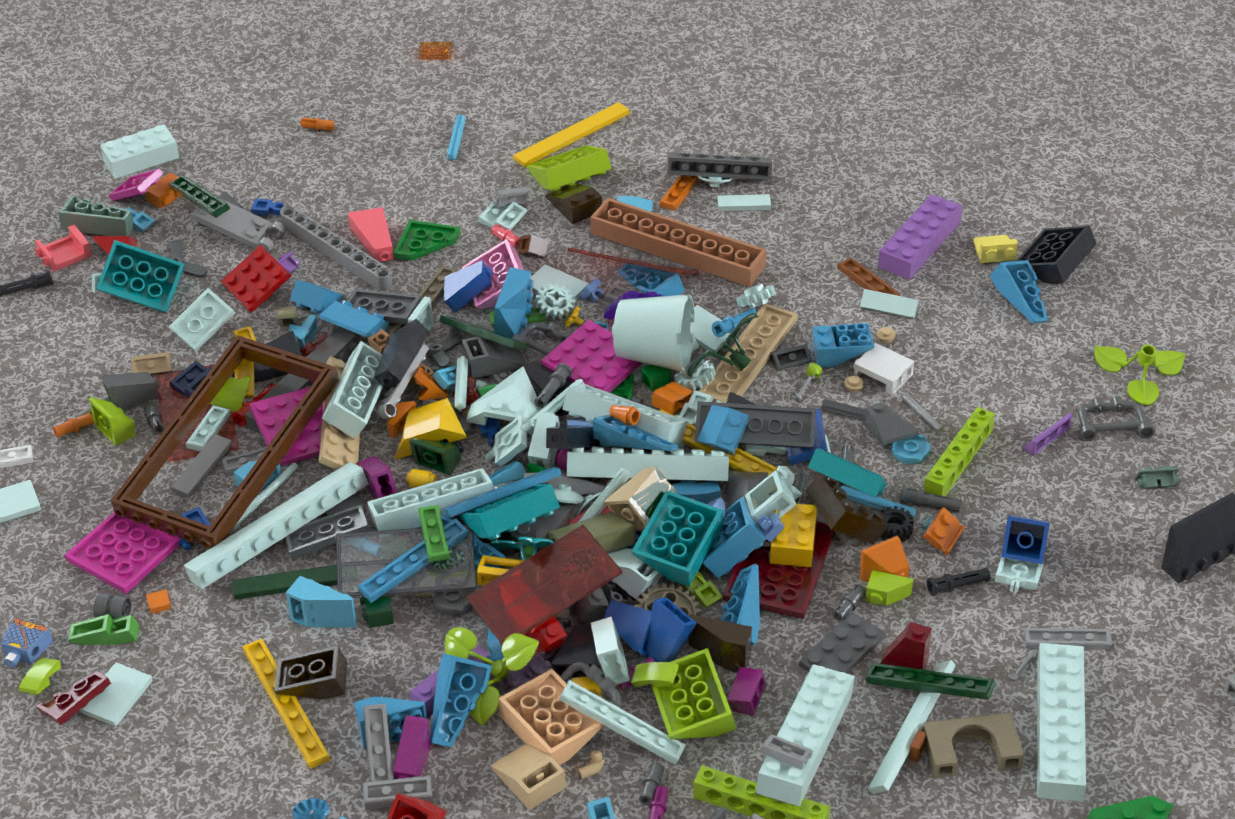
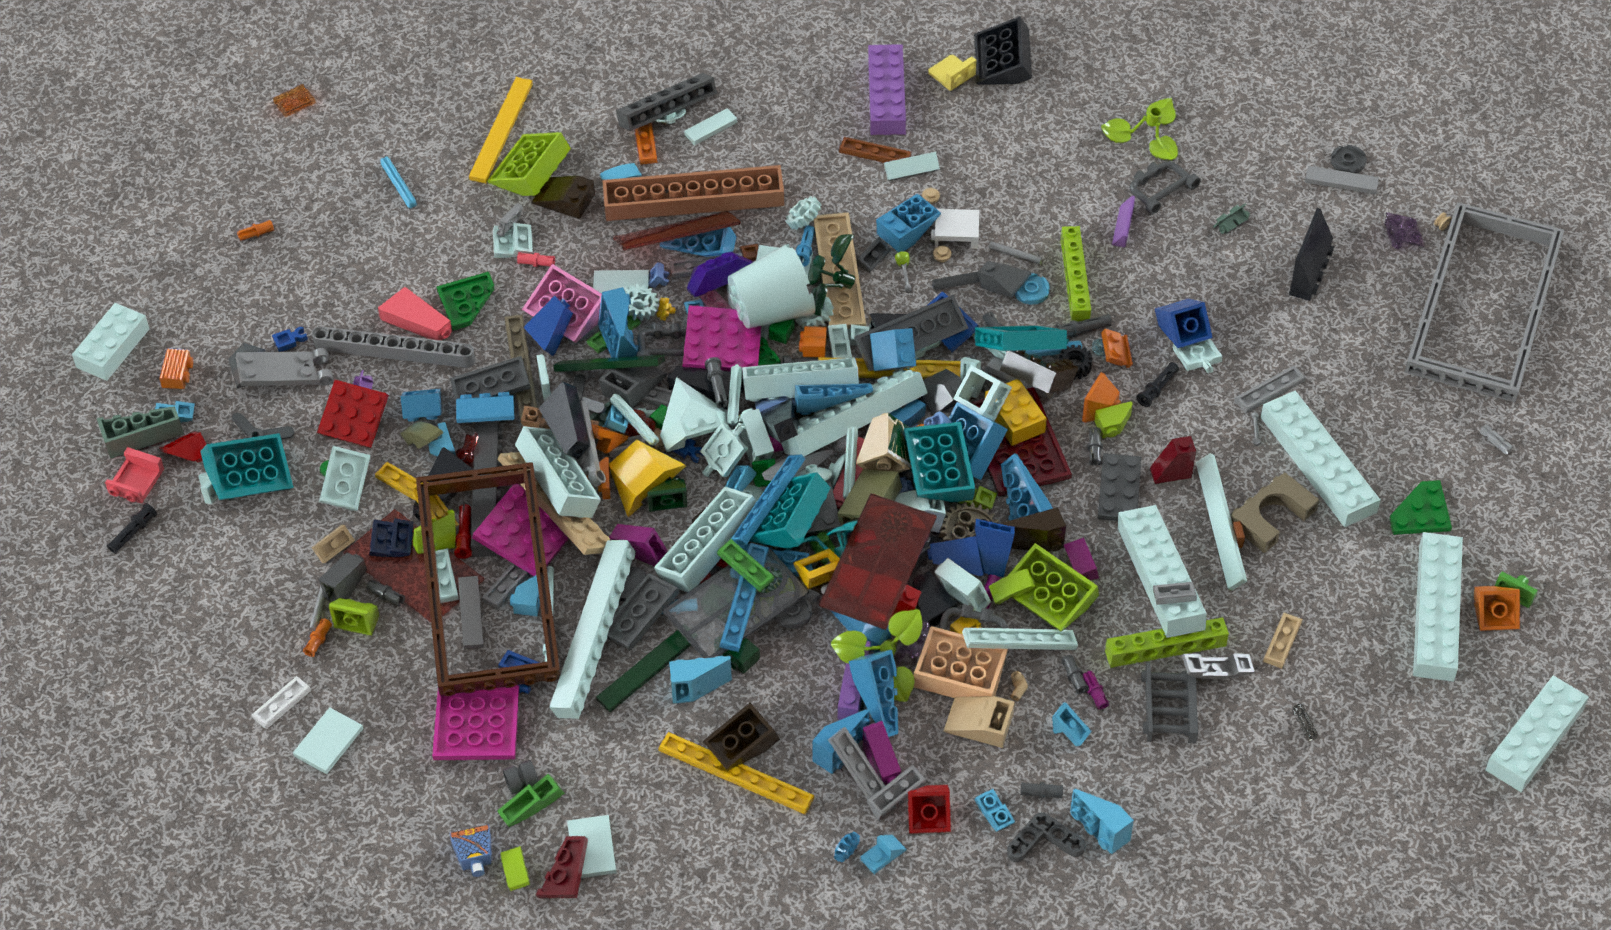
camera: 35 degrees left, 10 degrees up
(136, 185) = (147, 377): dark pink plate -> none
(158, 601) = (549, 750): orange tile -> none
(199, 196) = (234, 360): dark green tile -> none
(419, 478) = (672, 523): yellow brick -> none
(533, 245) = (569, 258): panel -> none
(625, 414) = (813, 378): orange cone -> none
(771, 526) = (1003, 415): medium blue tile -> none
(930, 681) = (1210, 478): dark green tile -> none
(1018, 285) = (997, 97): dark azure wedge -> none

